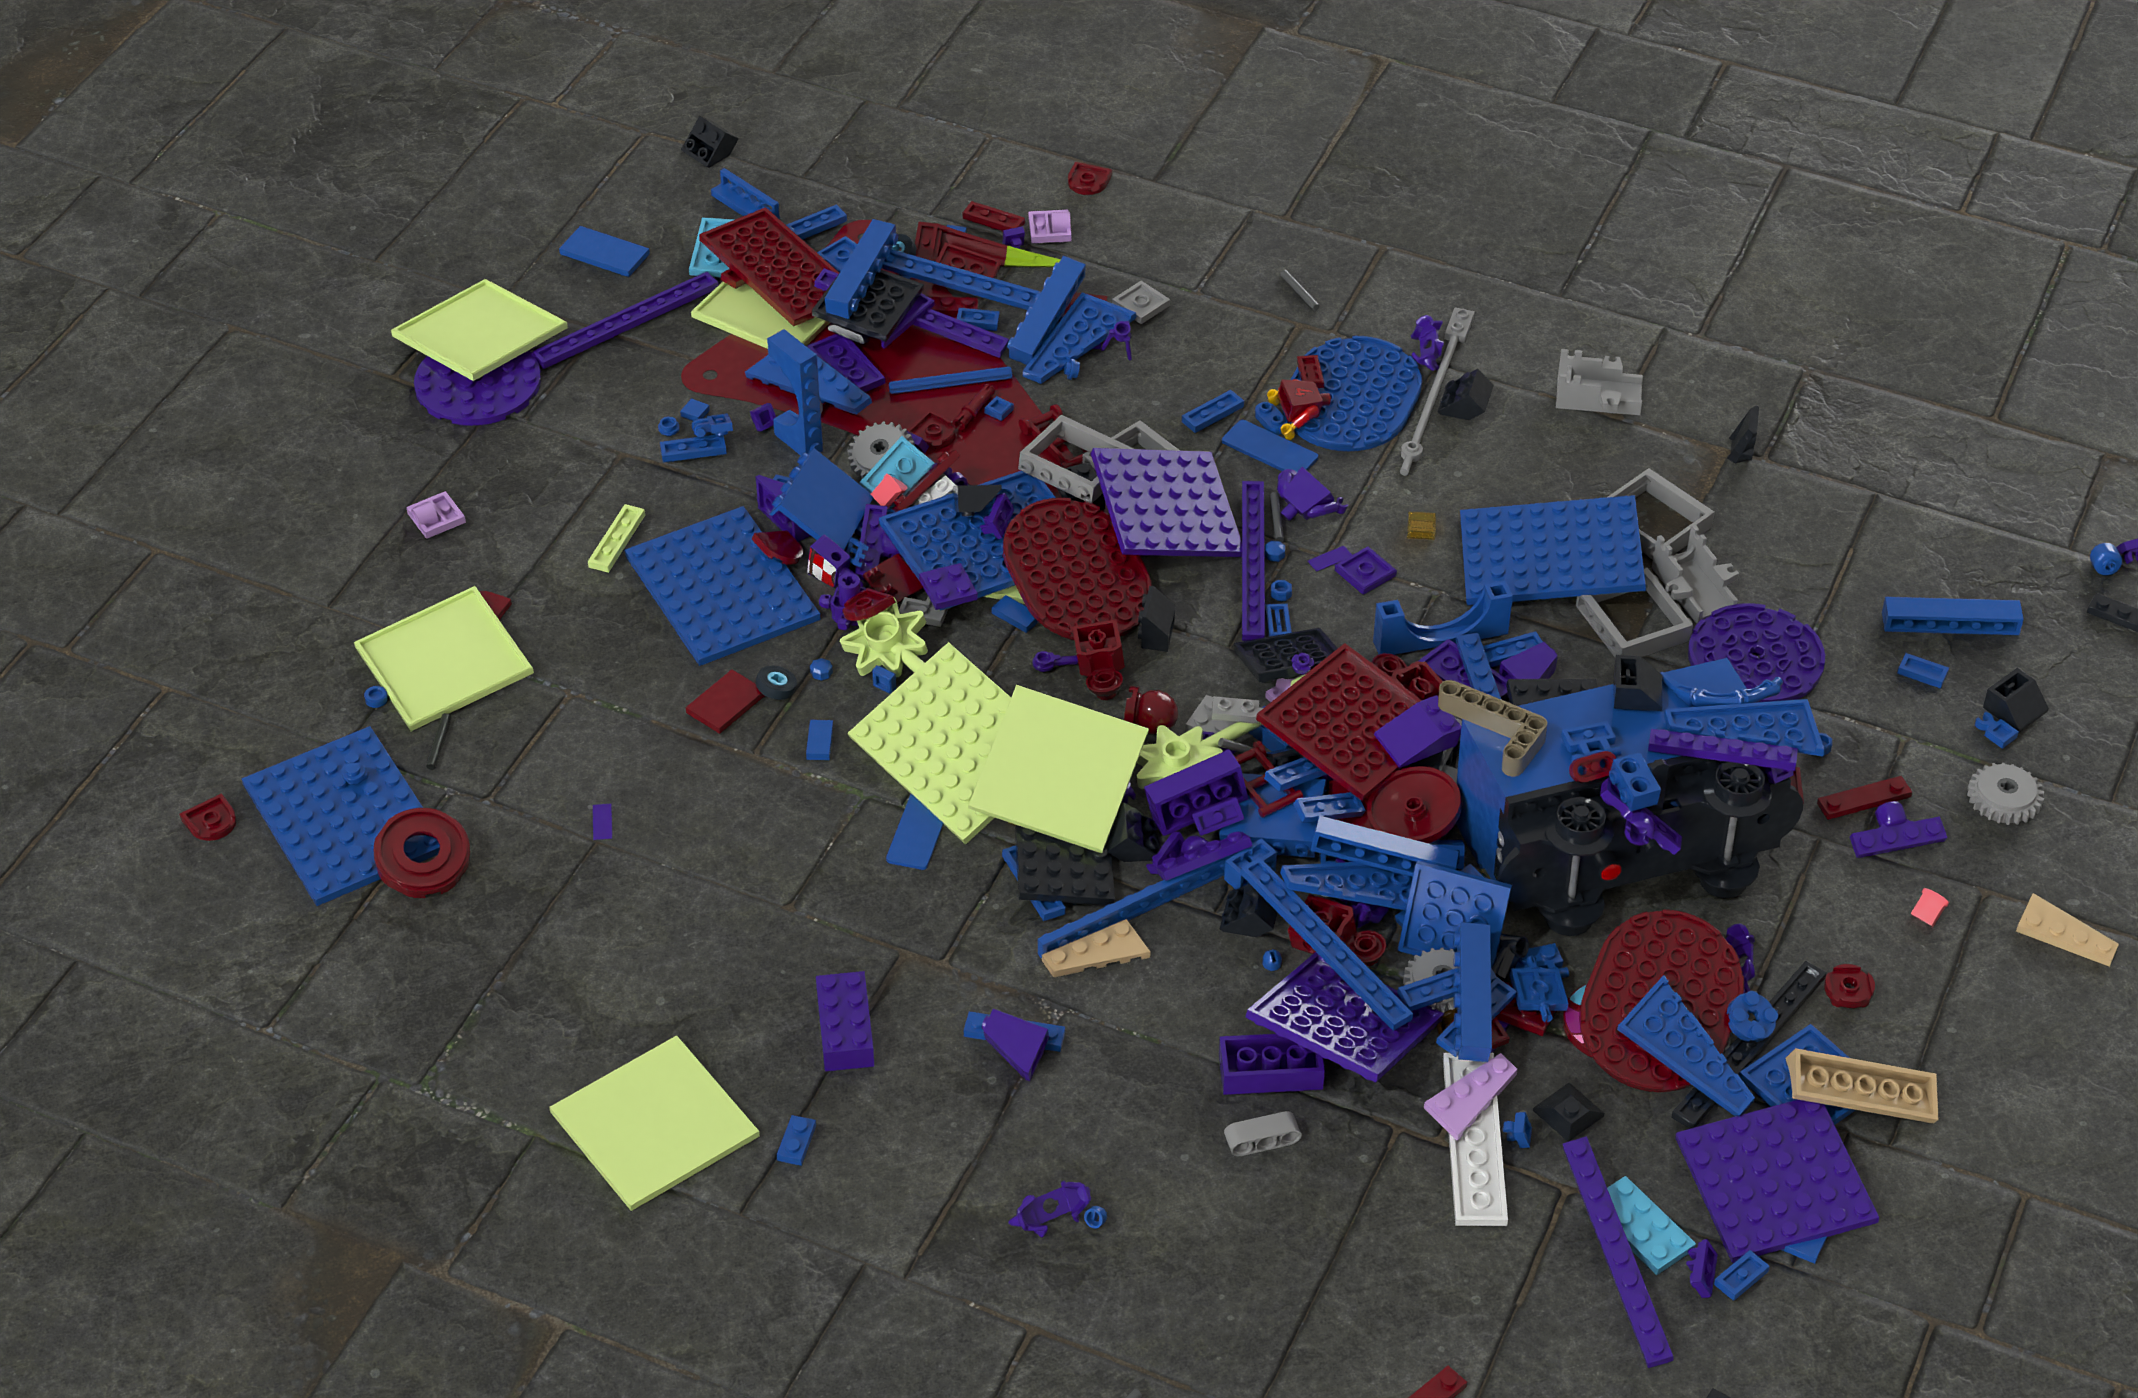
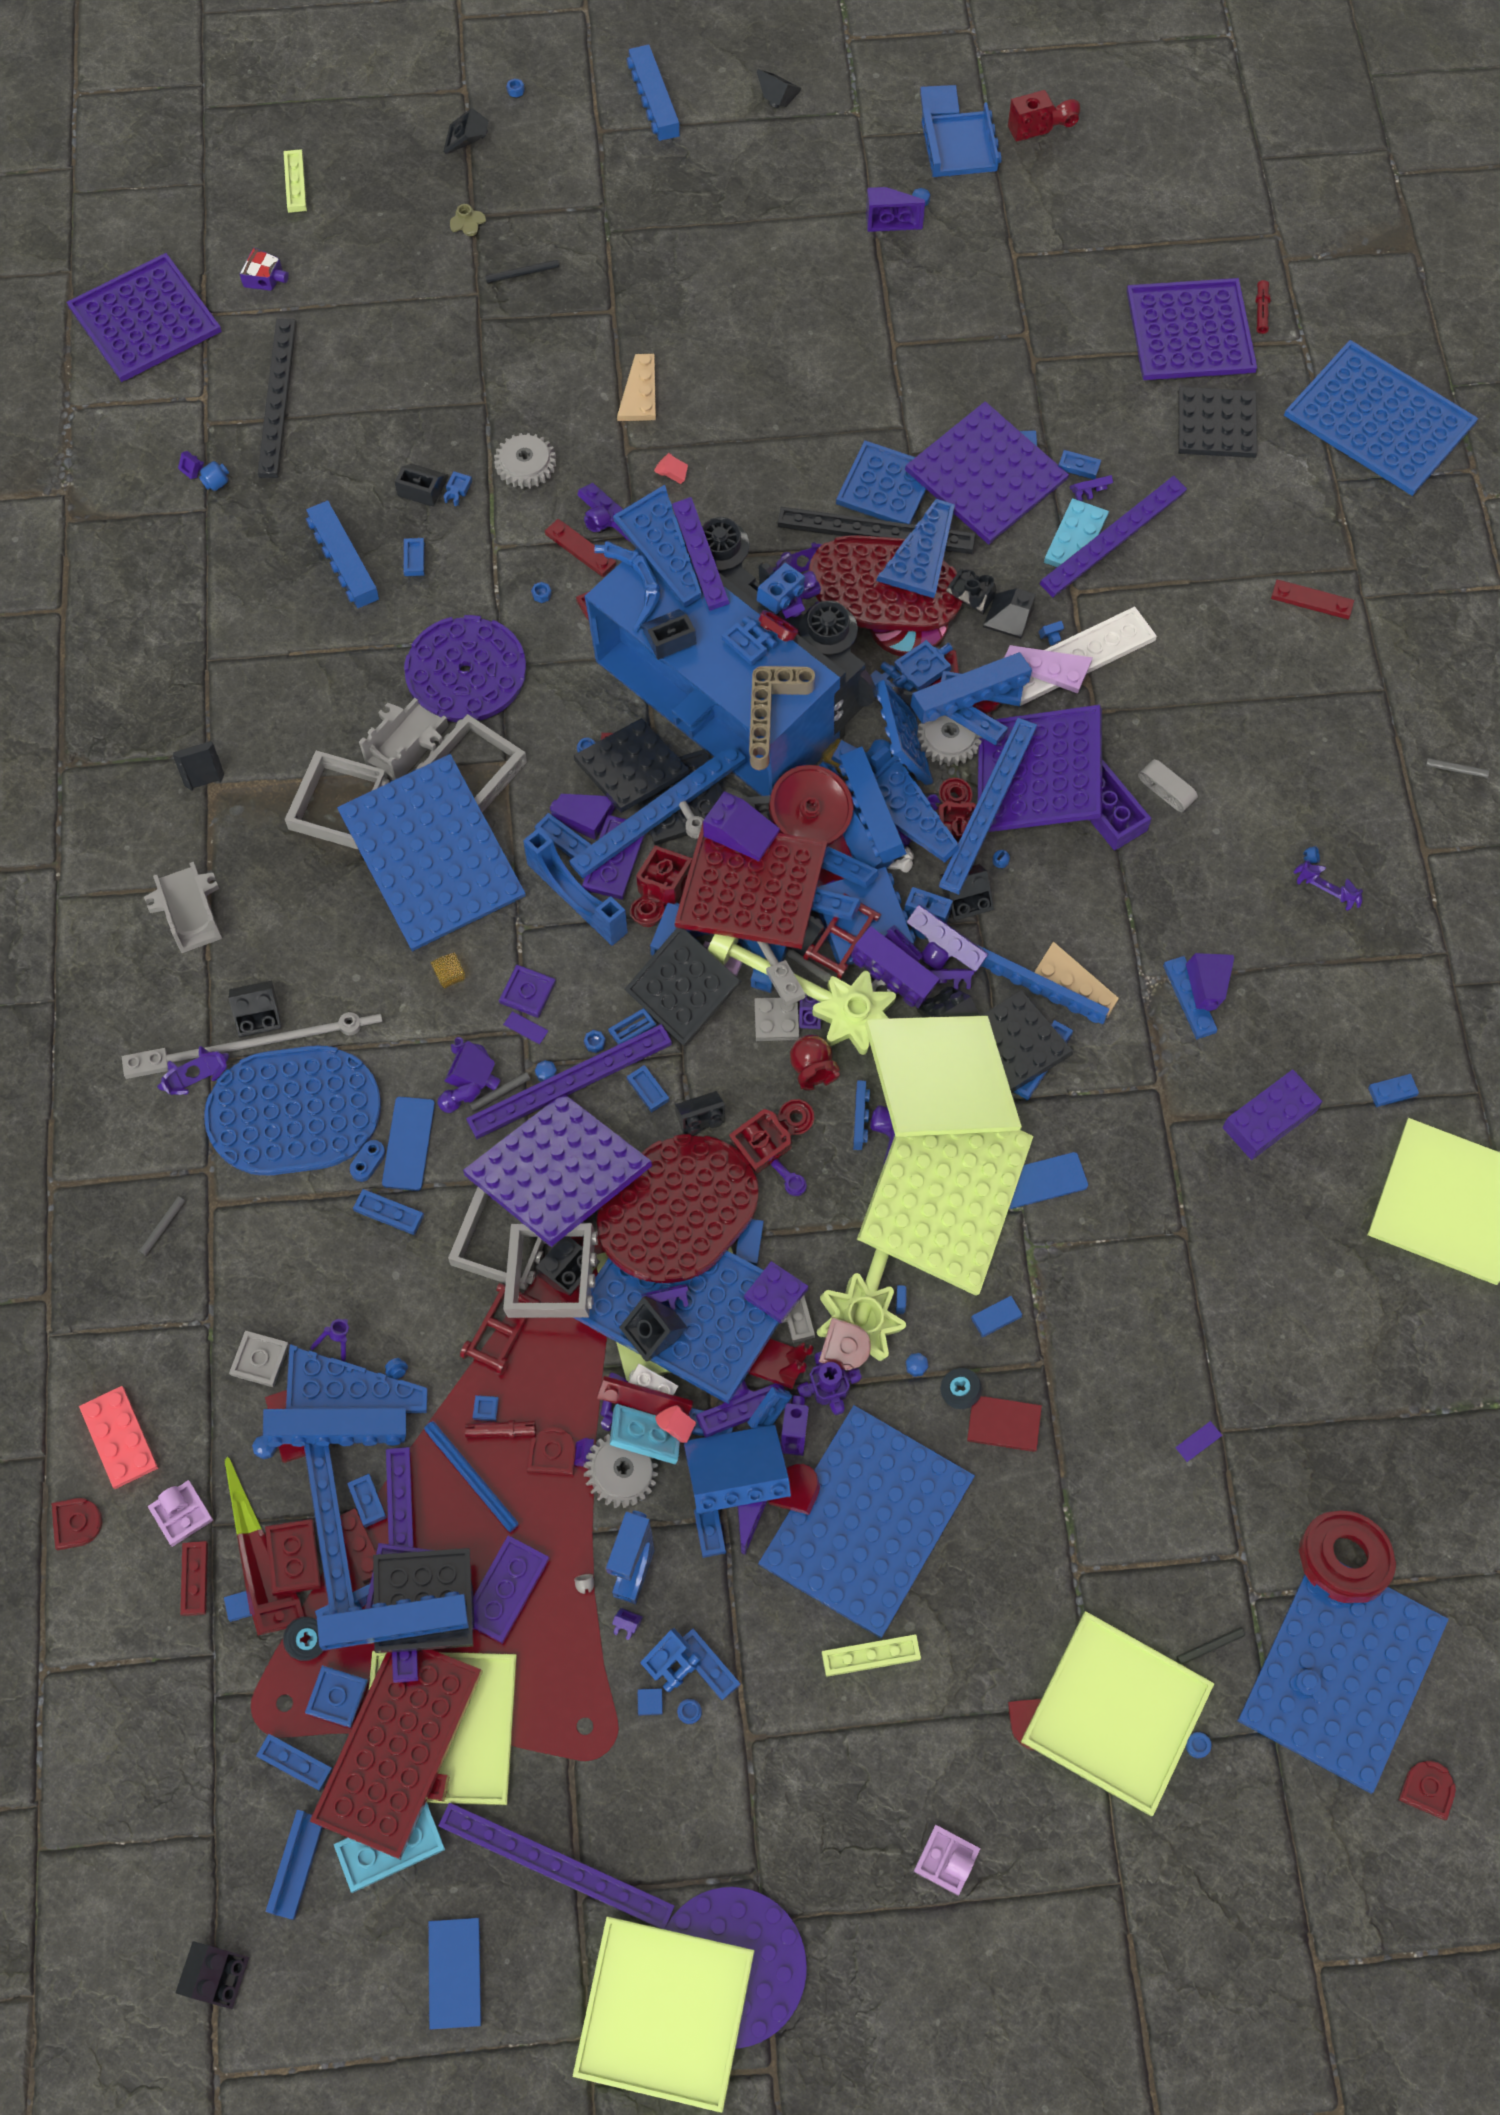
camera: 120 degrees left, 20 degrees up
(832, 385) = (545, 1622): blue wing -> none
(1014, 237) = (222, 1535): dark purple tile -> none
(1137, 217) = (118, 1437): none -> coral plate
(1210, 608) = (647, 1088): none -> blue tile
(1300, 403) = (345, 1134): dark red torso -> none
(1302, 668) = (711, 953): dark purple plate -> none
(1310, 369) = (293, 1148): dark red plate -> none
(1613, 1080) = (973, 589): none -> black slope
(1760, 1008) = (864, 525): blue plate -> none
(1847, 997) = (779, 482): dark red plate -> none
(1863, 1085) = (880, 444): tan arch -> none

